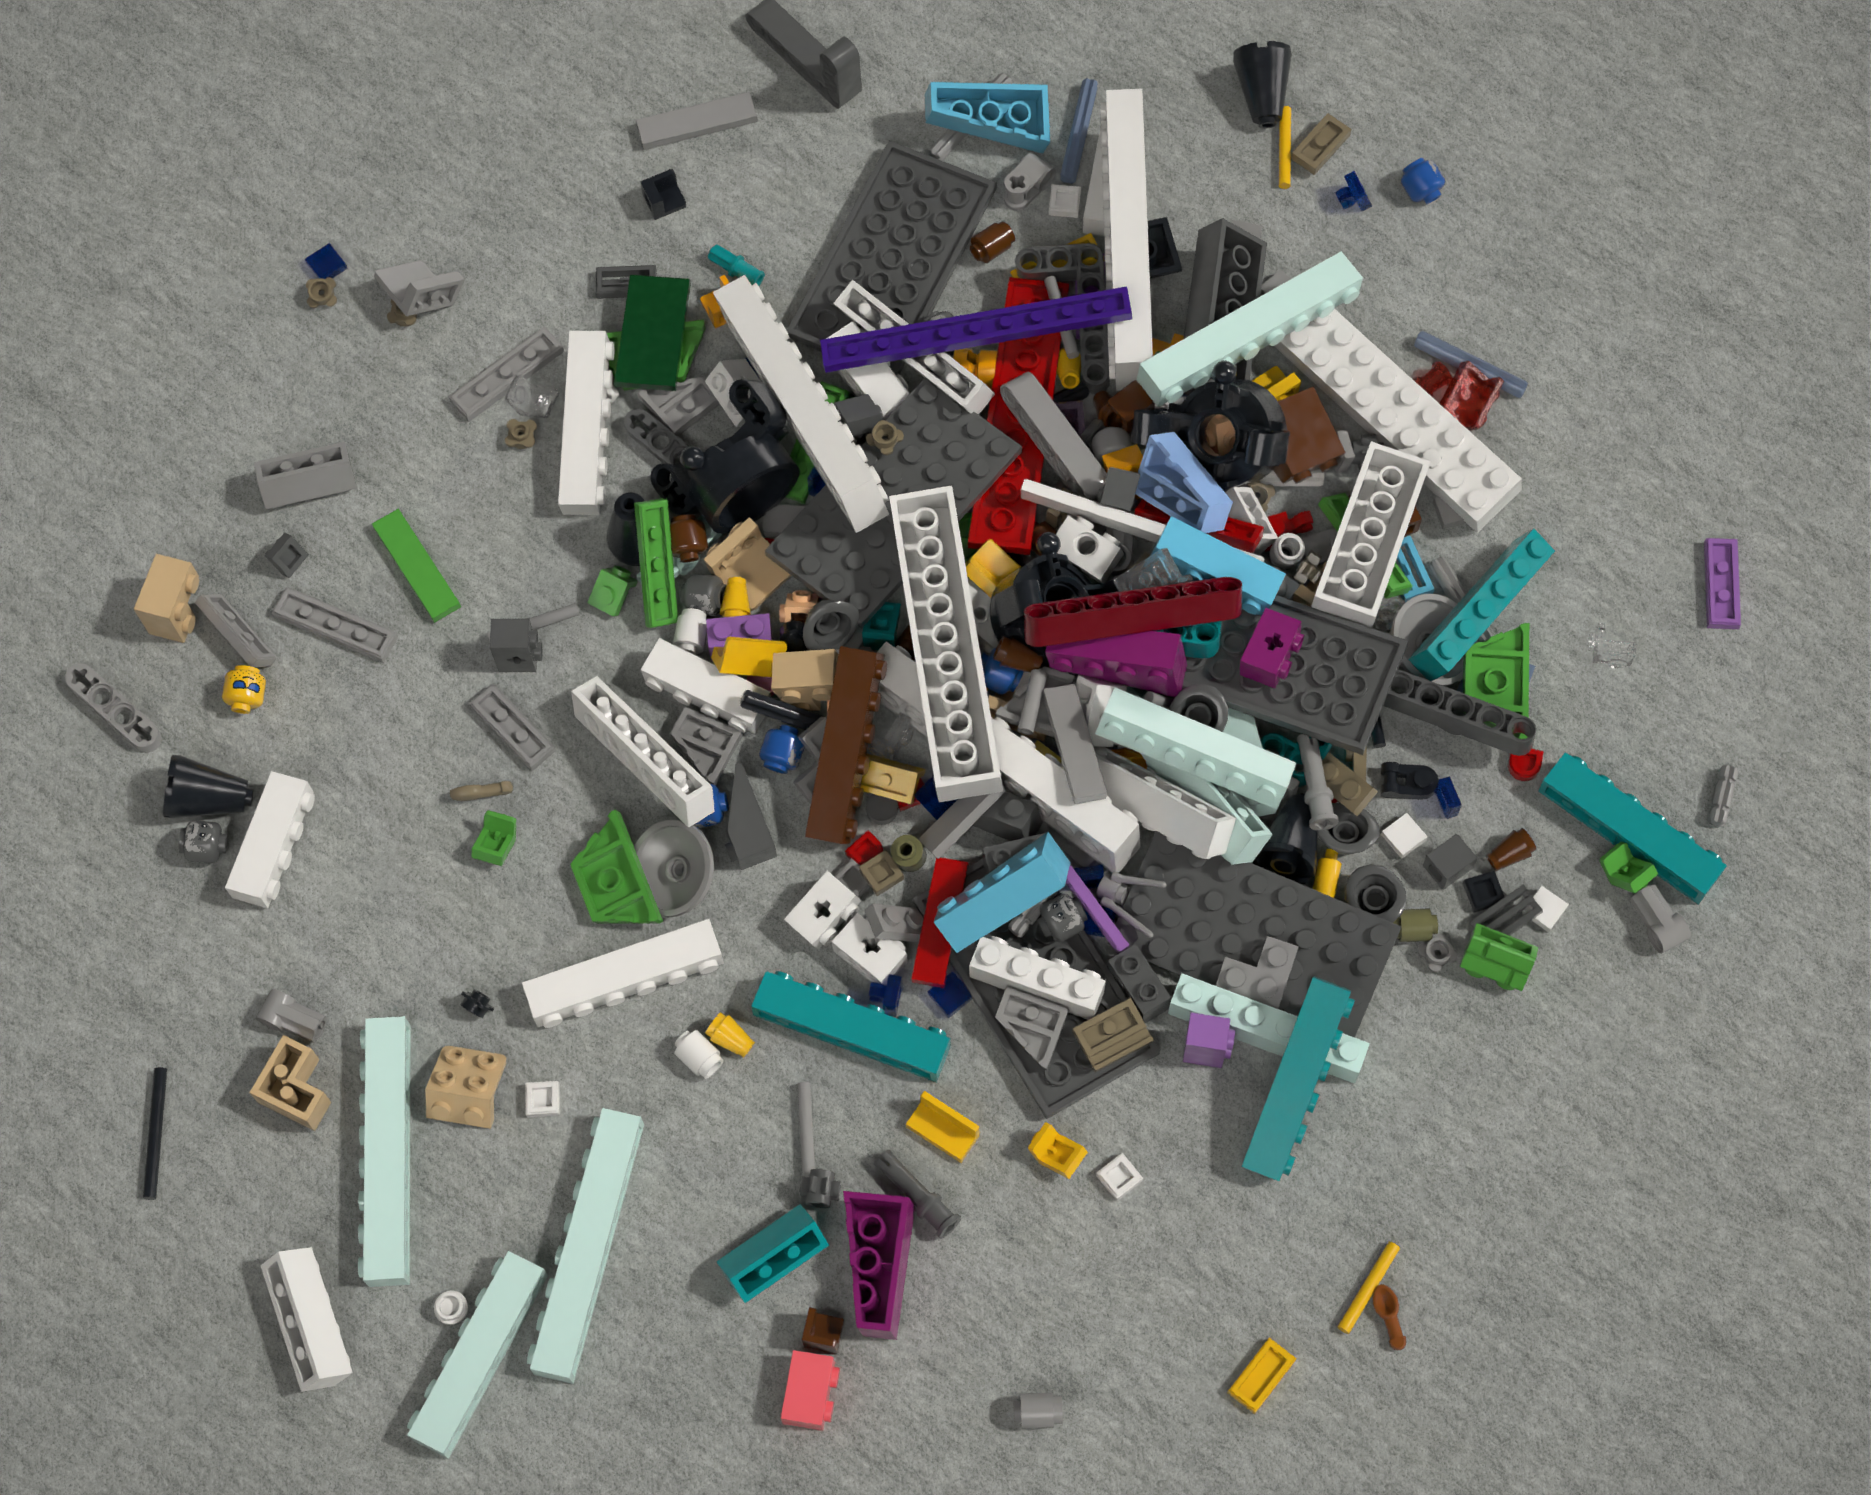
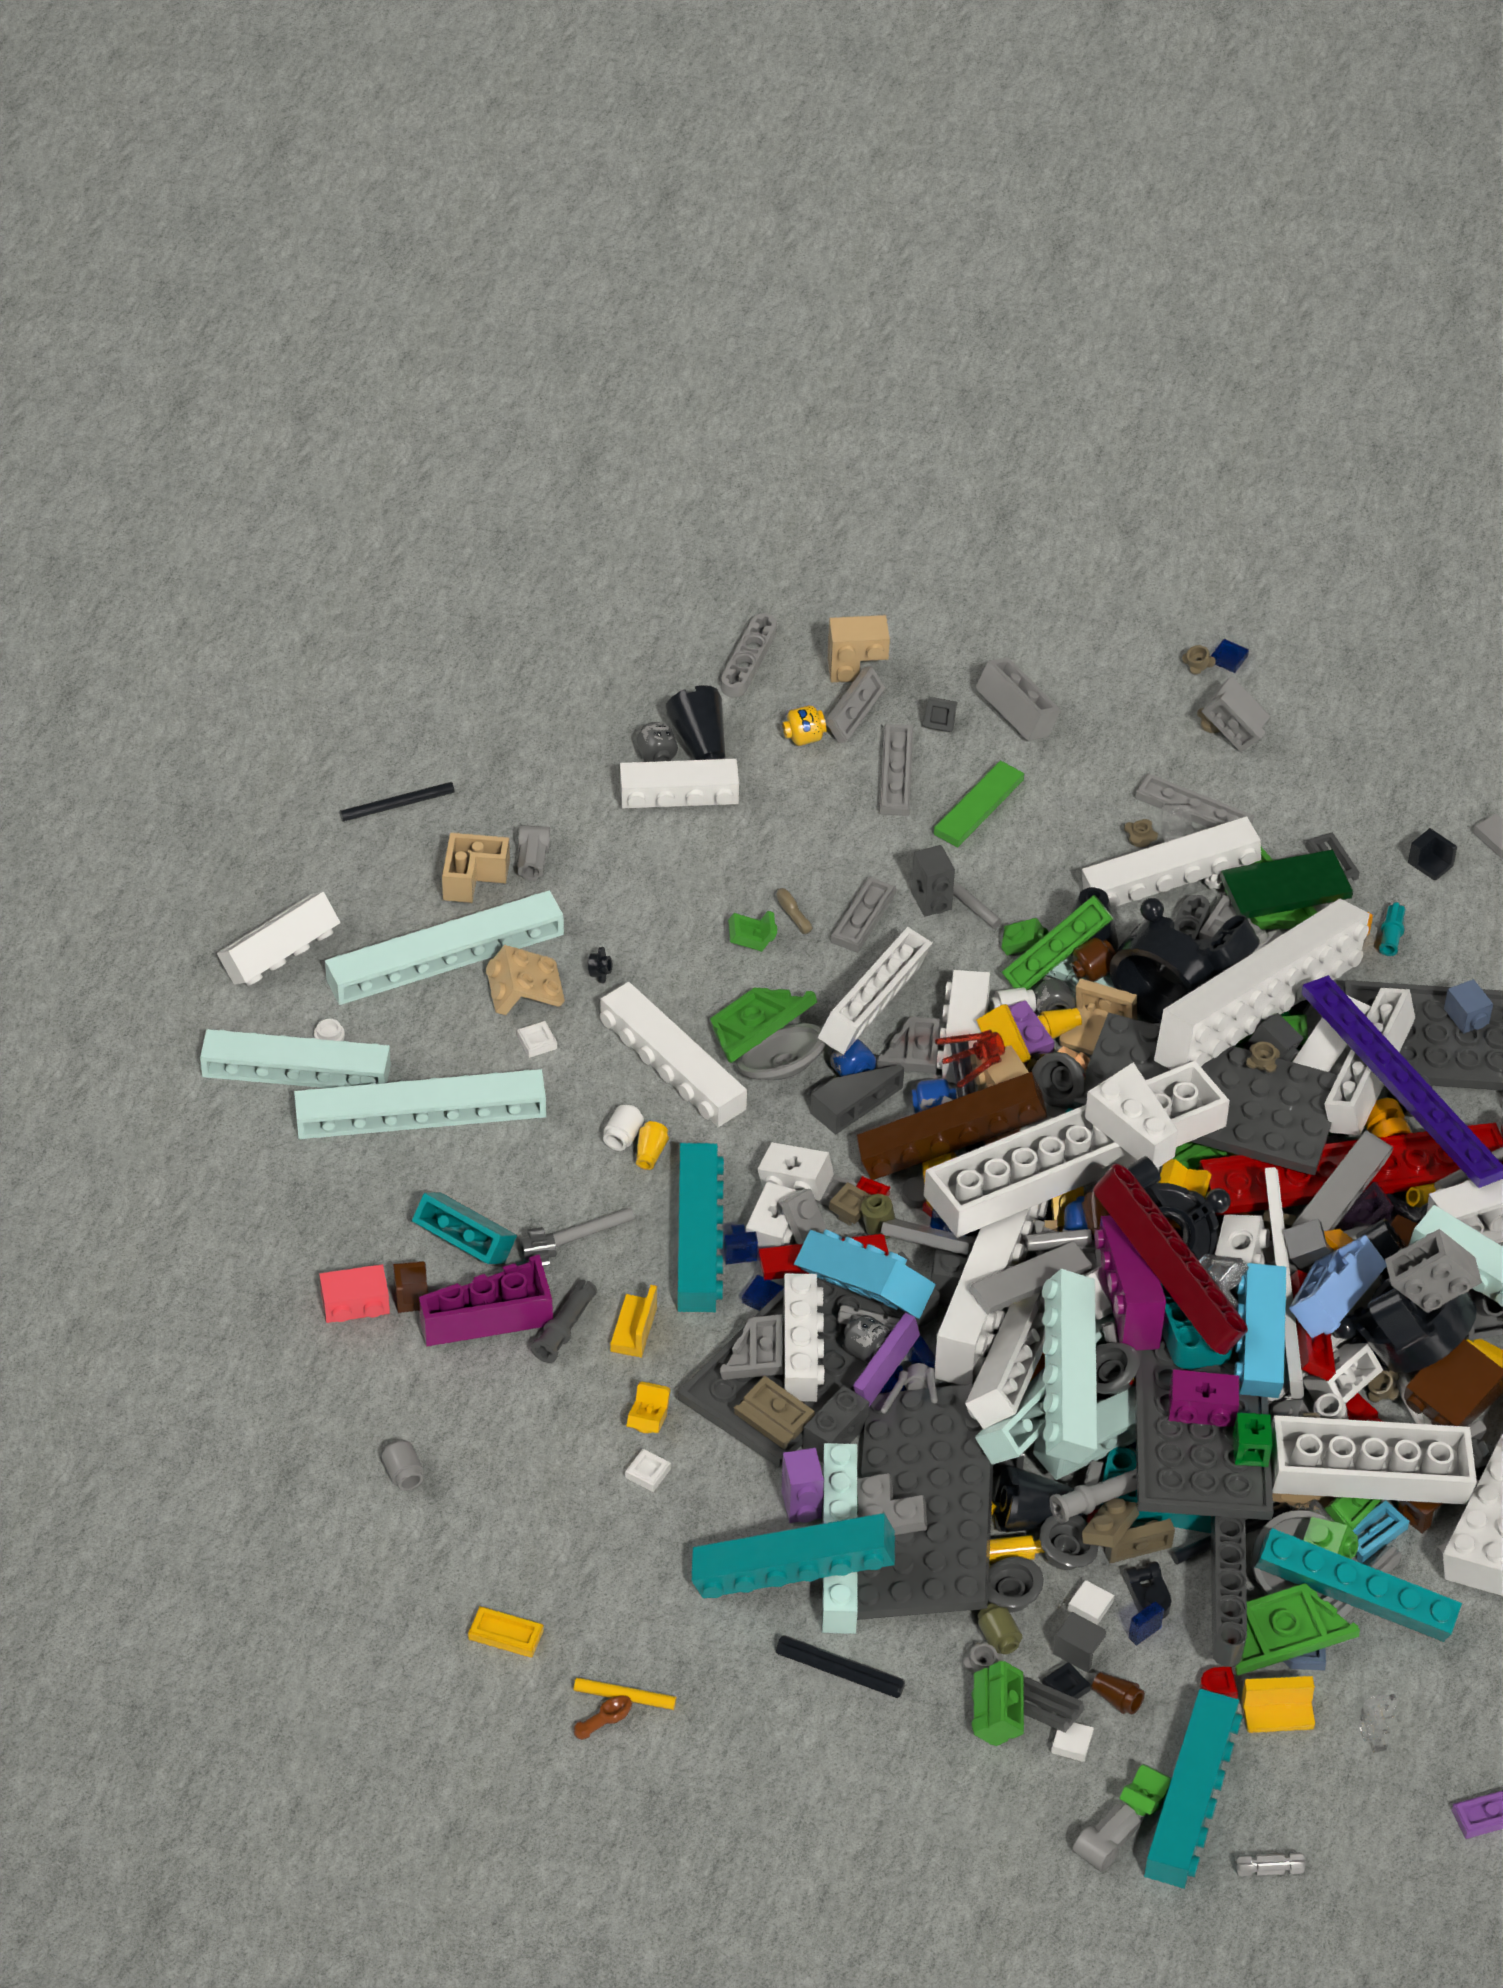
camera: 65 degrees right, 20 degrees down
(776, 677) = (988, 1047): none -> clear red plant
(872, 240) = (1468, 1006): none -> sand blue brick
(956, 575) = (1132, 1116): none -> white wedge
(1247, 403) = (1433, 1271): none -> light grey brick
(1341, 628) = (1252, 1432): none -> green brick
(1402, 1081) = (840, 1666): none -> black axle
(1436, 607) = (1332, 1536): none -> bright green bracket
(1566, 722) = (1278, 1704): none -> yellow panel

